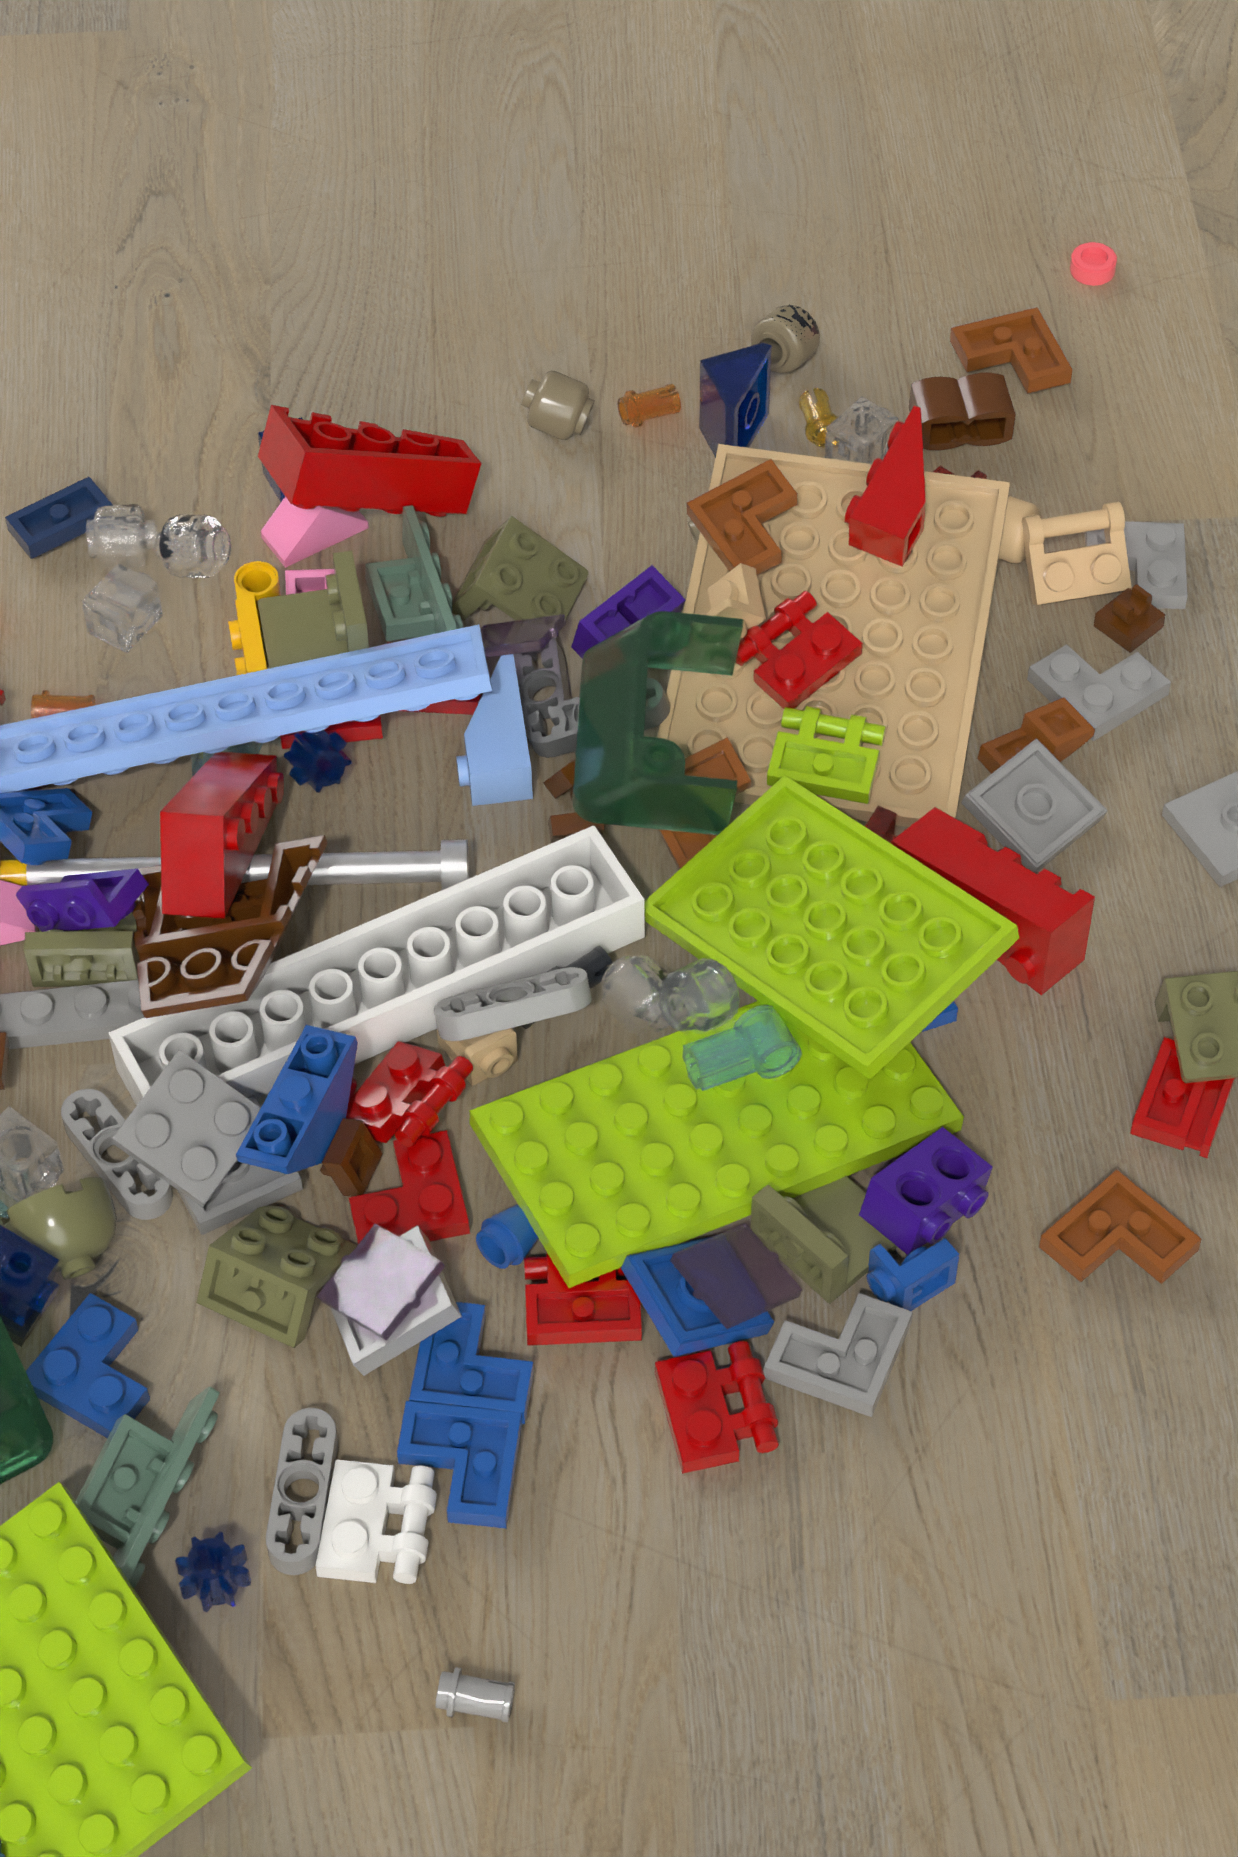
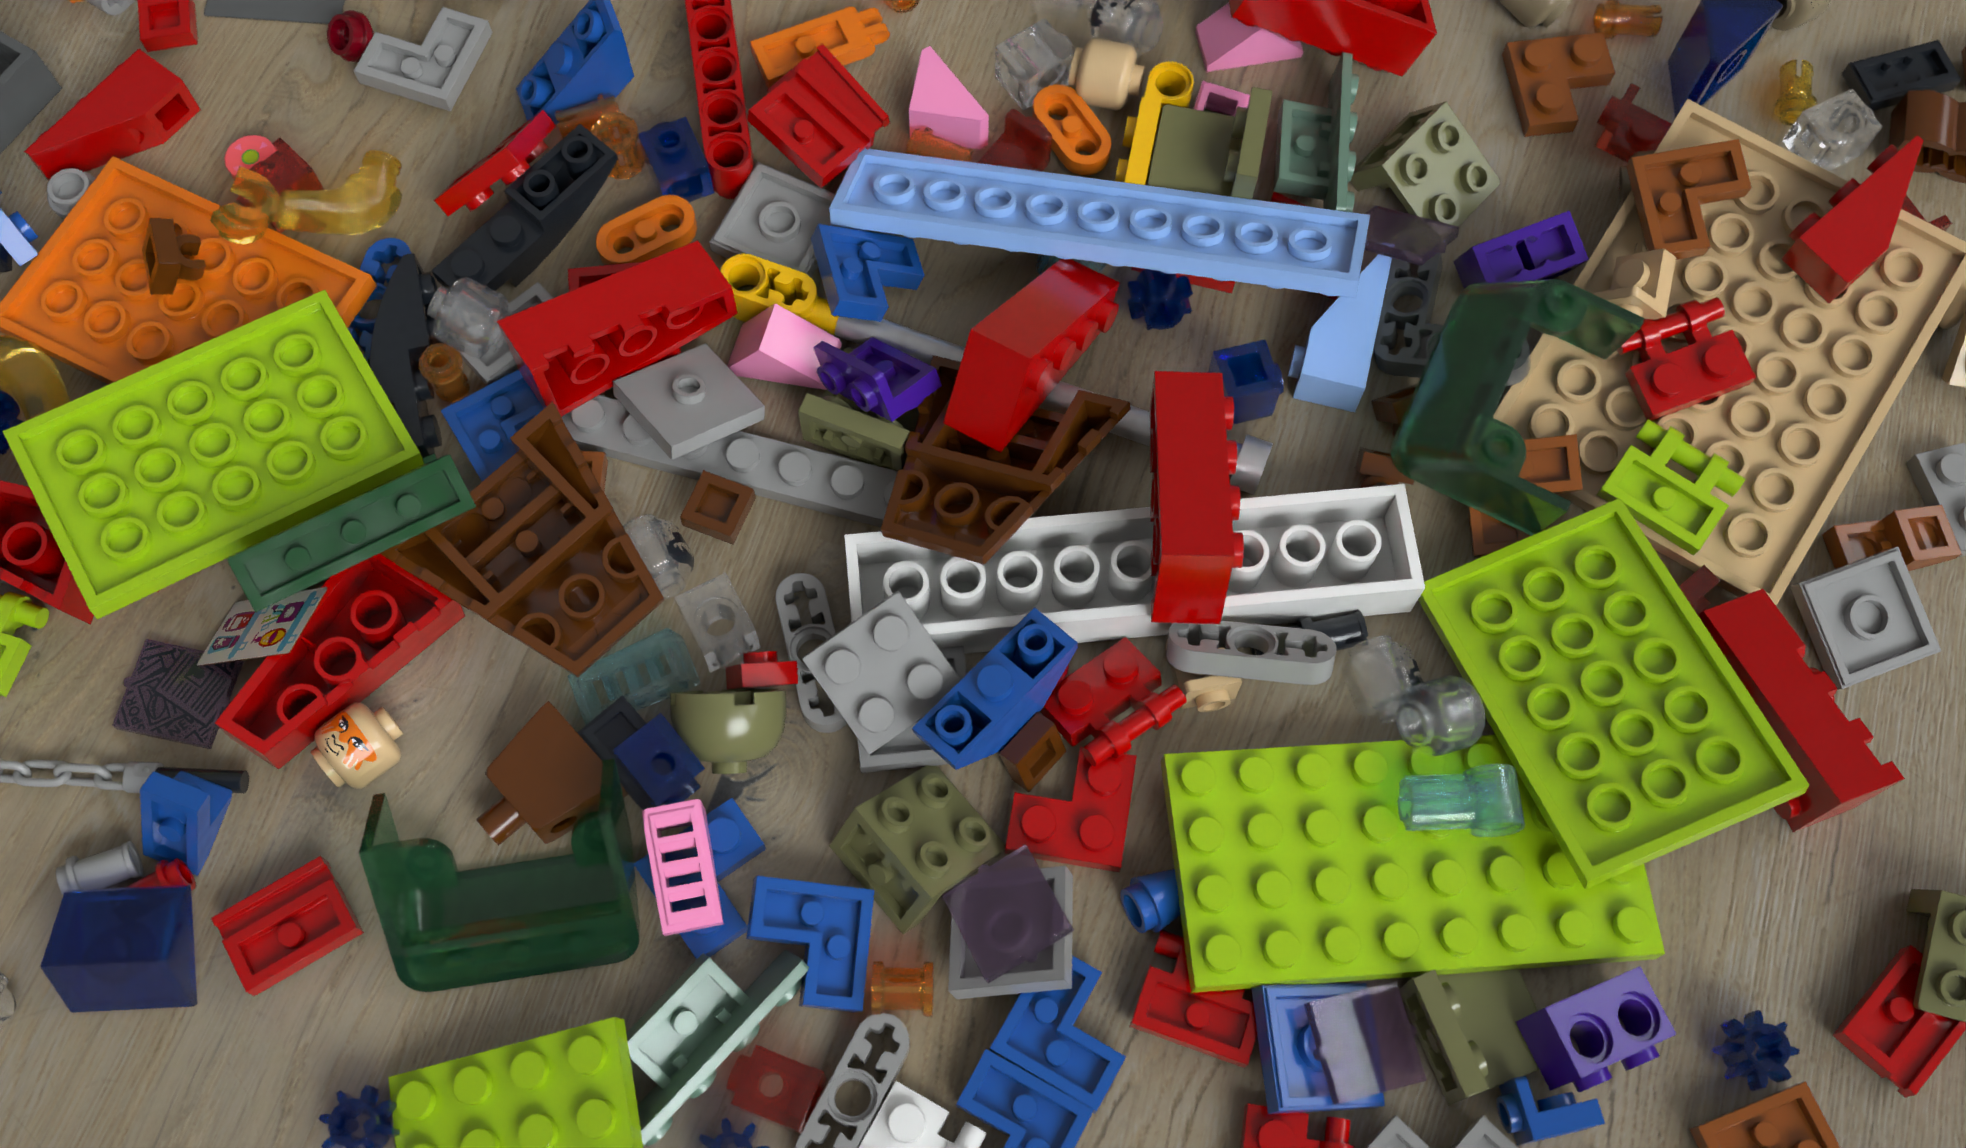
camera: 20 degrees right, 15 degrees up
(48, 1322) = (674, 816): none -> bright pink slope
(55, 665) = (946, 105): none -> bright pink slope
(76, 1167) = (761, 670): none -> red plate
(137, 674) = (1022, 145): none -> clear red bracket
(187, 654) = (1076, 132): none -> orange plate
(193, 593) = (1106, 73): none -> tan head
(221, 1355) = (830, 924): none -> blue plate
(230, 1503) = (792, 1105): none -> clear red brick
(312, 1384) = (903, 988): none -> clear orange bush
(410, 891) = (1192, 497): none -> red wedge
(421, 800) = (1249, 378): none -> clear blue brick
(595, 471) = (1545, 72): none -> dark orange plate
(678, 488) = (1629, 127): none -> clear red bracket
(891, 380) = (1888, 77): none -> black plate
(1068, 1163) = (1771, 1056): none -> clear blue gear

